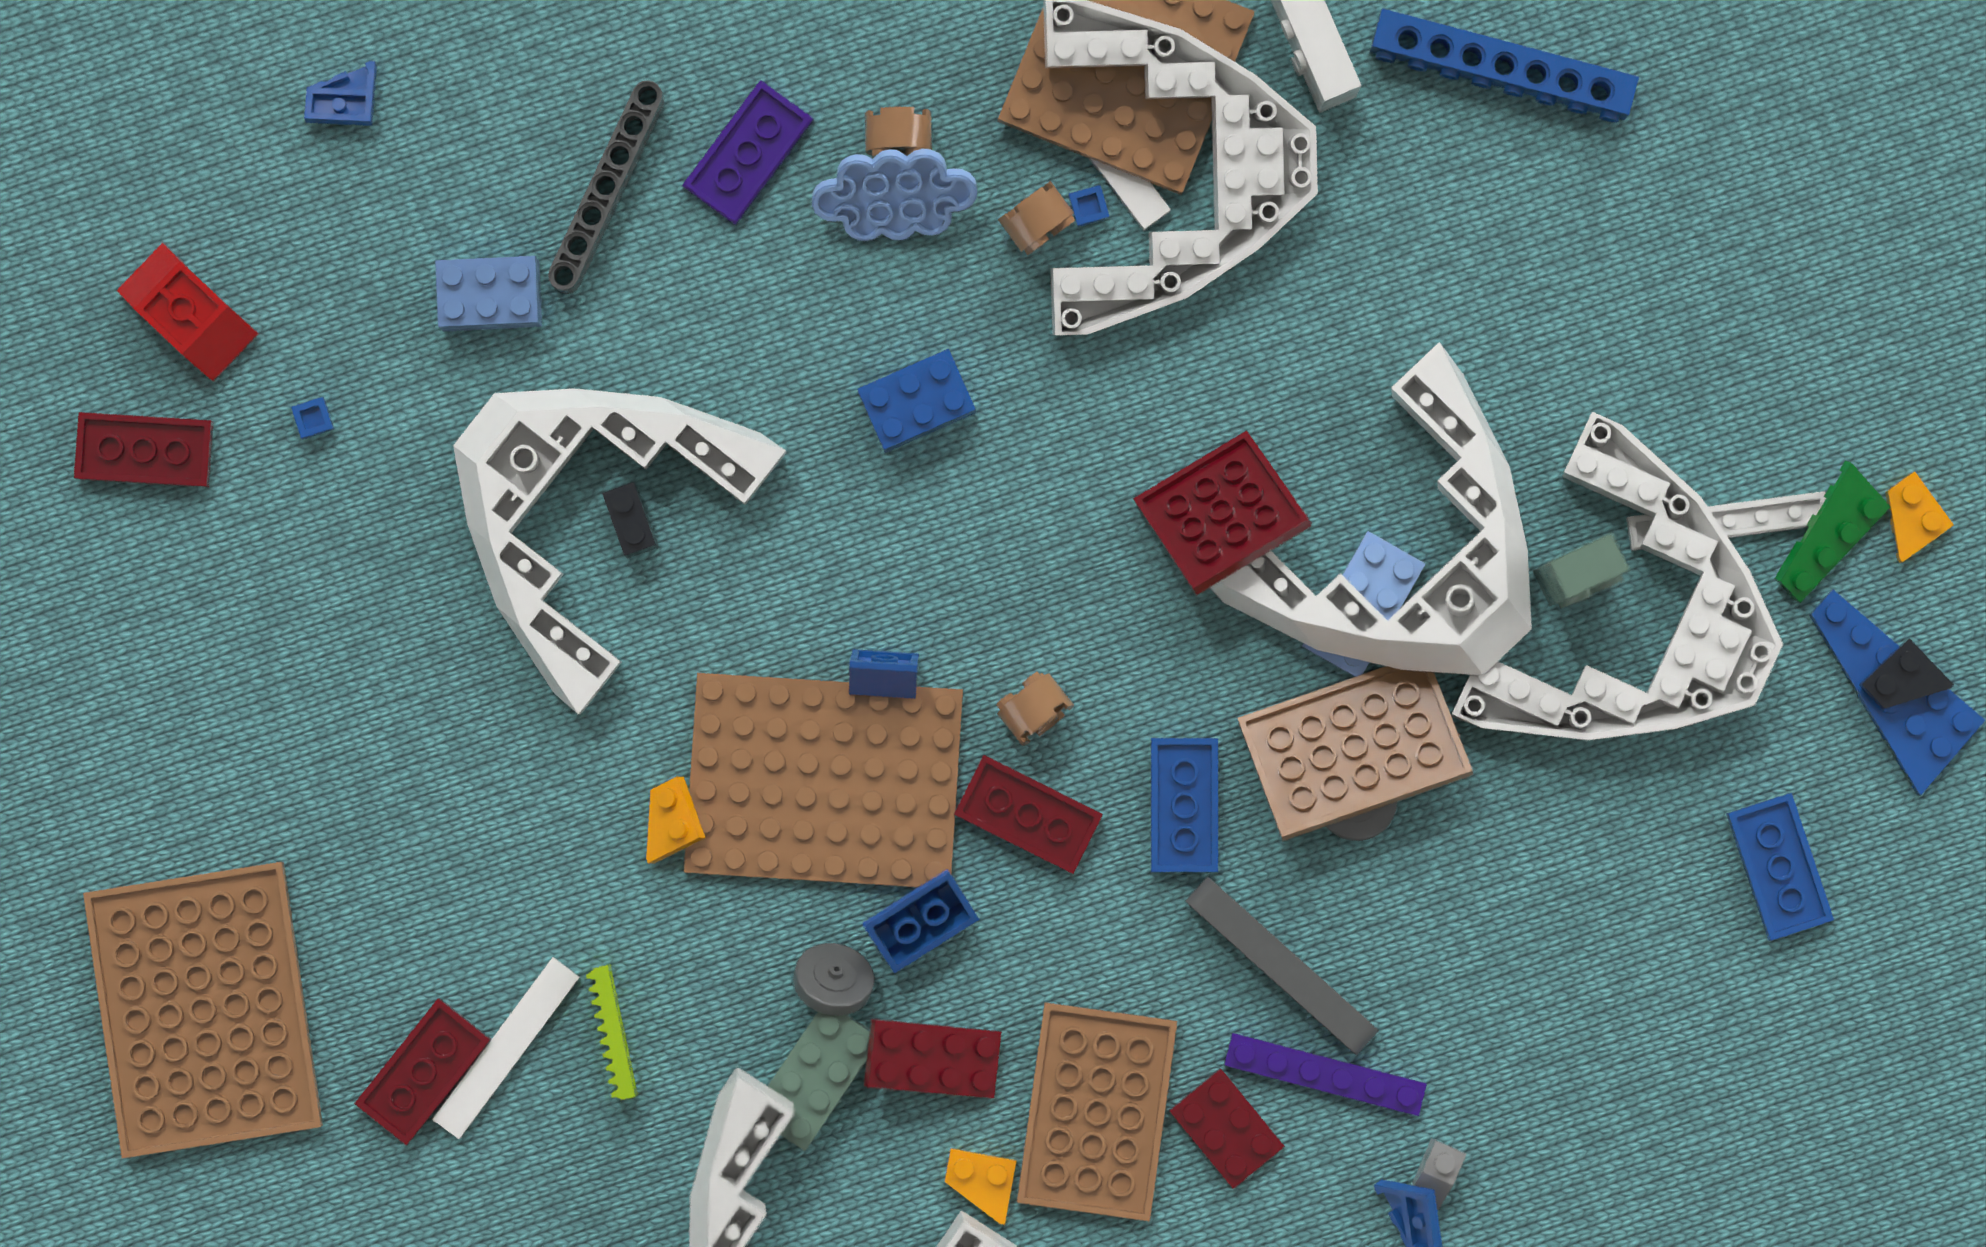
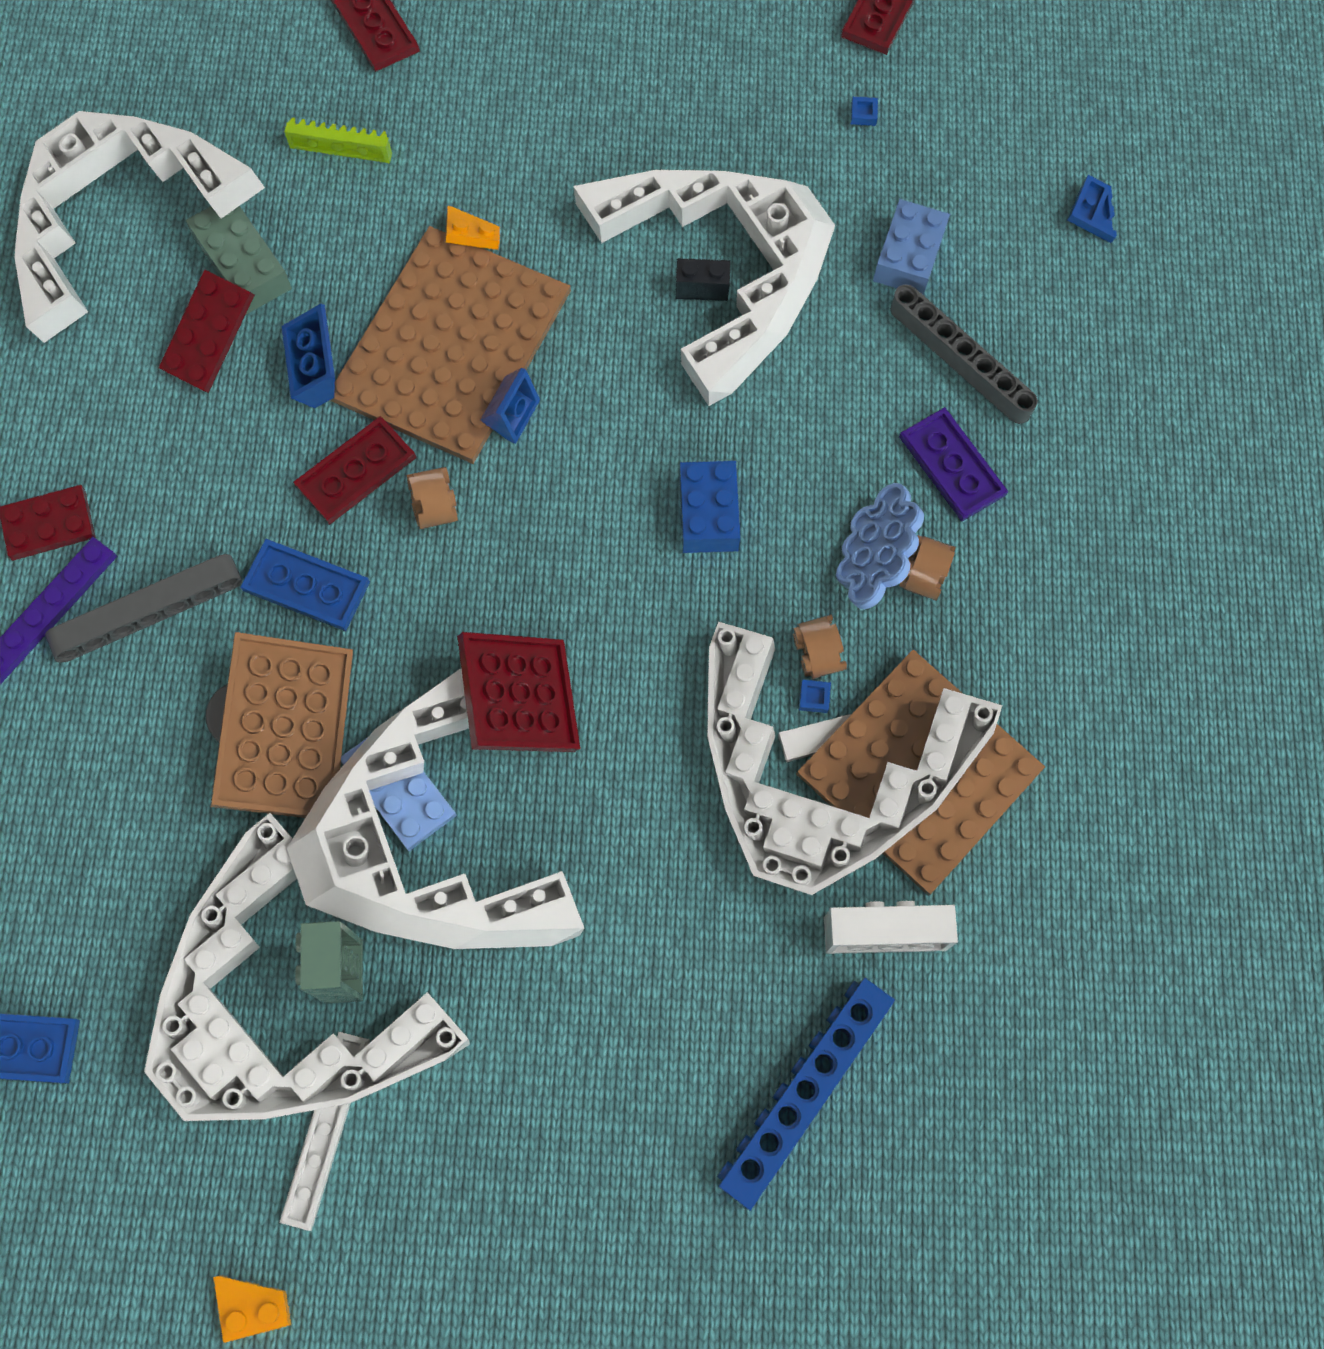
camera: 110 degrees right, 15 degrees down
(187, 312) = (968, 54): red slope -> none
(506, 1048) = (364, 78): white tile -> none
(833, 979) = (298, 284): dark grey wheel -> none
(982, 1180) = (104, 340): light orange wing -> none
(1097, 1111) = (109, 434): medium nougat plate -> none
(1841, 522) = (274, 1232): green wing -> none
(1904, 677) = (108, 1231): black wing -> none
(1919, 732) = (86, 1227): blue wing -> none

